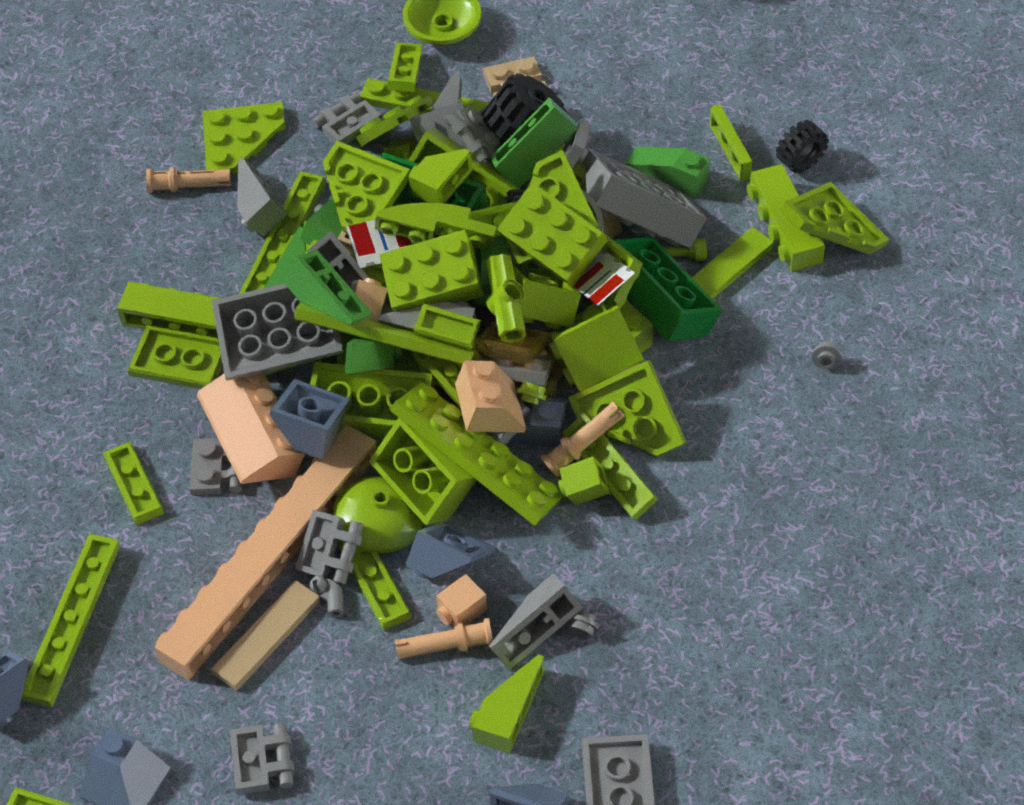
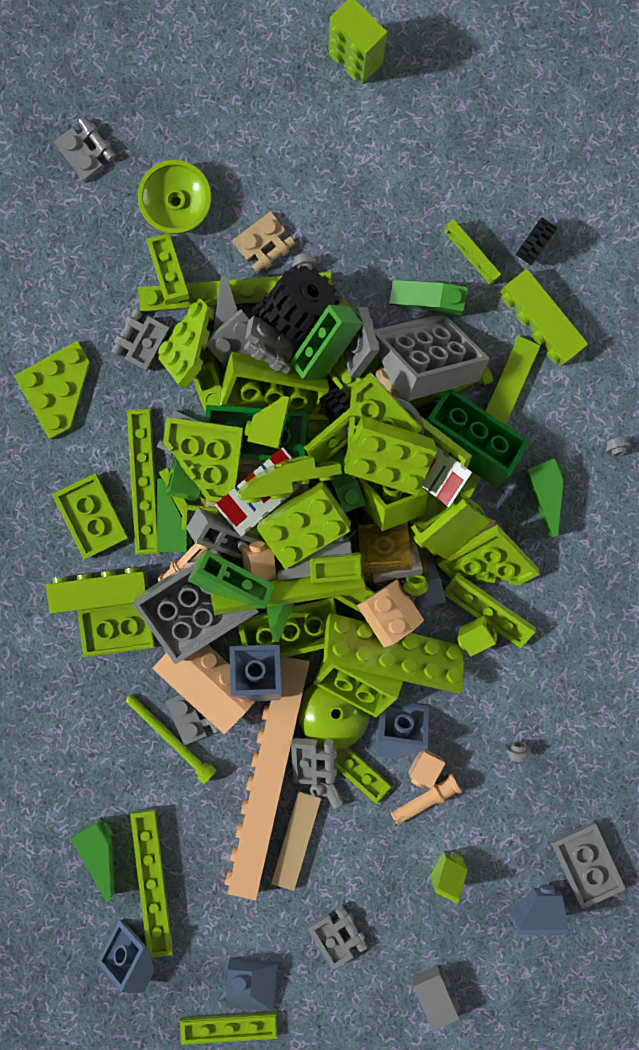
camera: 25 degrees left, 35 degrees up
(28, 564) = (96, 850): none -> bright green slope
(133, 483) = (138, 752): lime tile -> none
(175, 179) = (27, 458): light nougat pin -> none
(197, 523) = (203, 770): none -> lime piece
(210, 247) = (90, 516): none -> lime plate
(256, 200) = (106, 457): light grey slope -> none
(433, 725) = (449, 876): none -> lime slope
(506, 298) = (373, 527): lime piece -> none
(506, 707) = (490, 840): lime slope -> none
(535, 620) = (487, 761): light grey slope -> none
(571, 448) = (458, 609): light nougat pin -> none
(727, 370) = (547, 488): none -> bright green slope
(835, 218) = (587, 313): lime plate -> none

